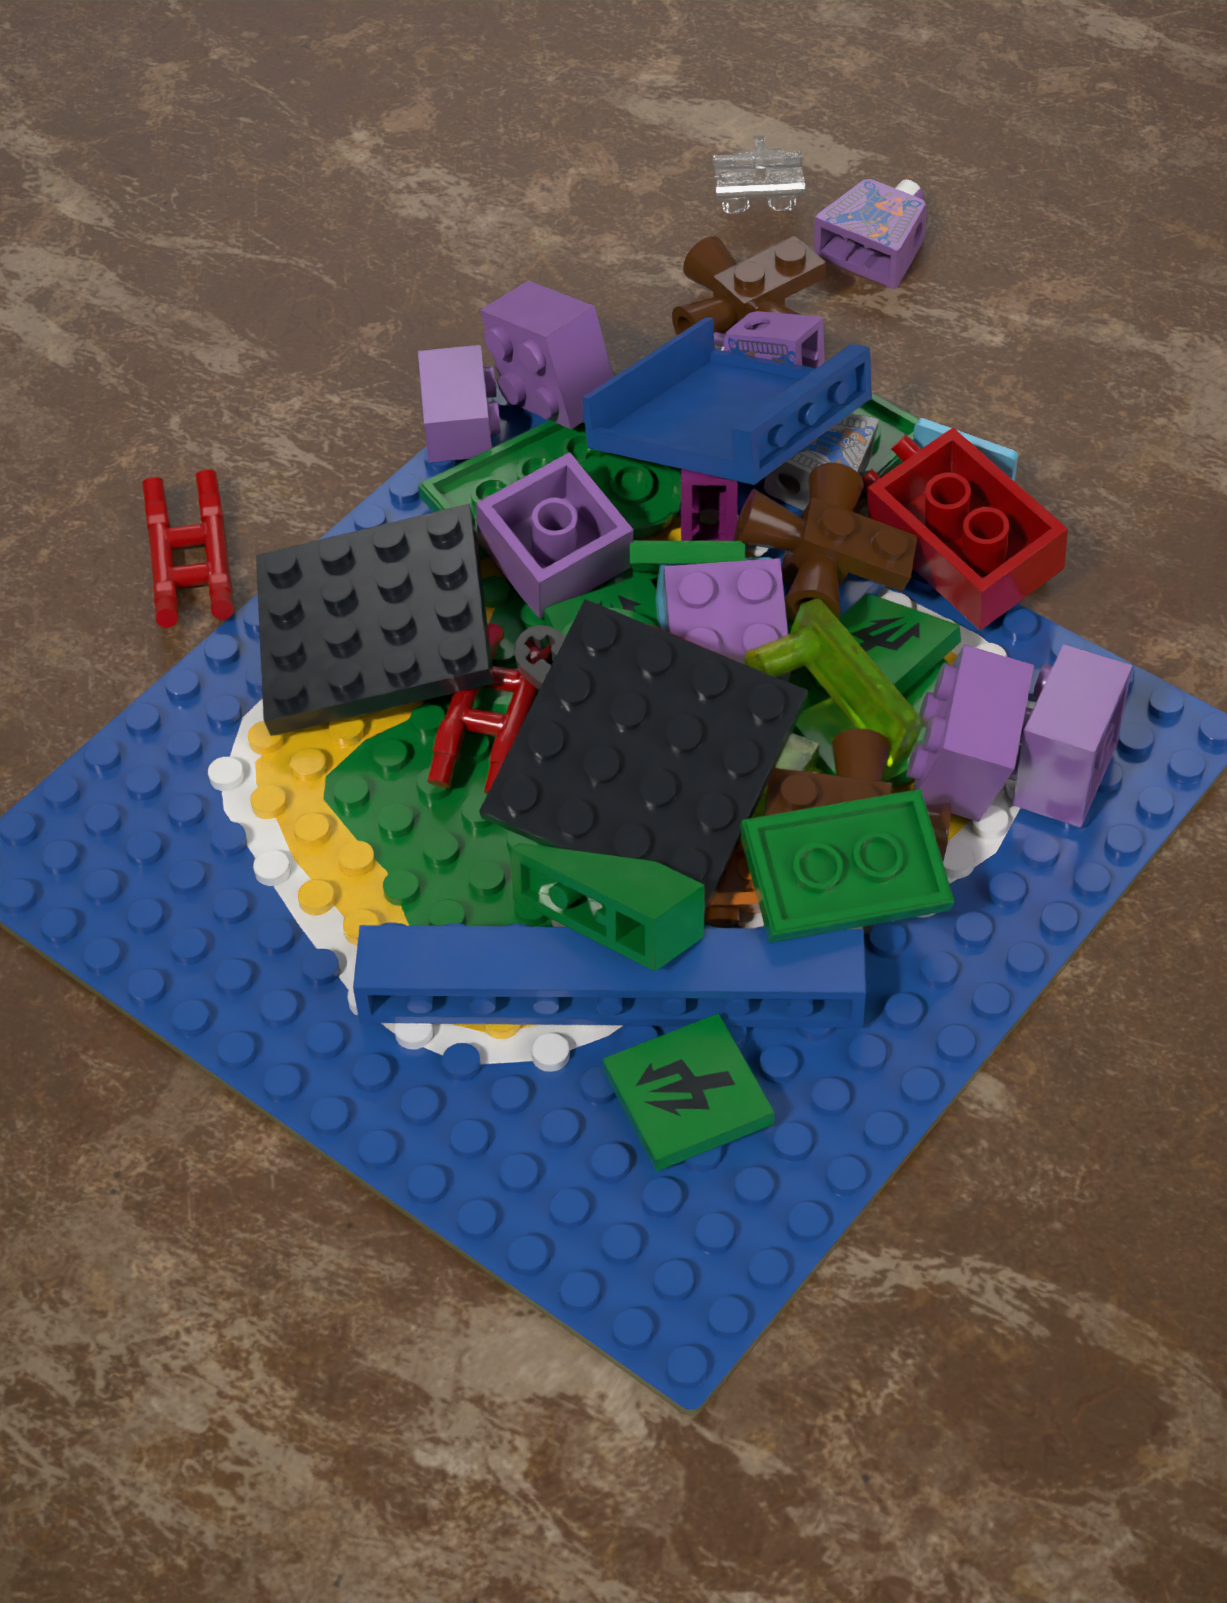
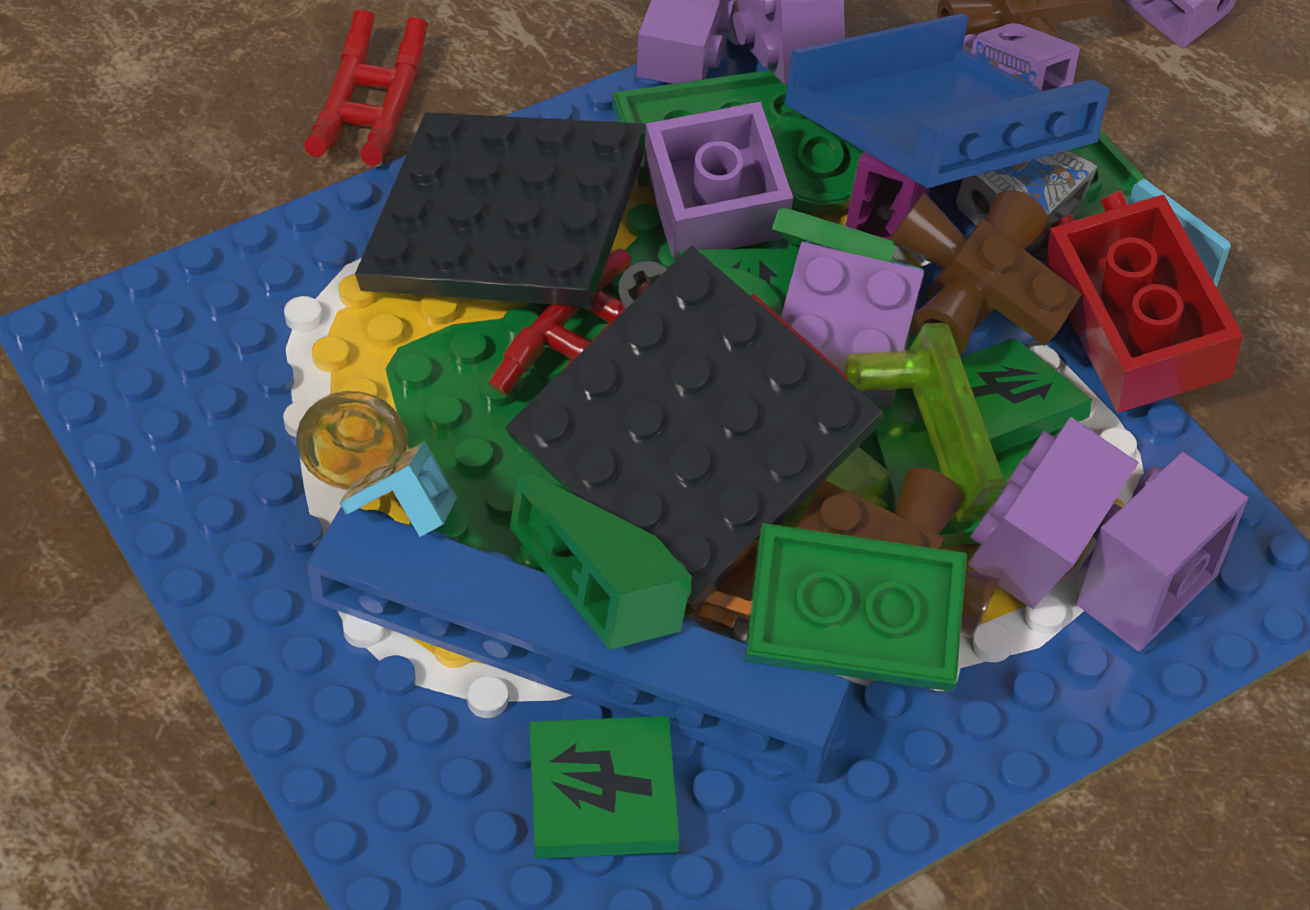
camera: 15 degrees right, 0 degrees up
(337, 869) = (349, 437): none -> clear yellow hat
(395, 885) = (415, 482): none -> medium azure panel

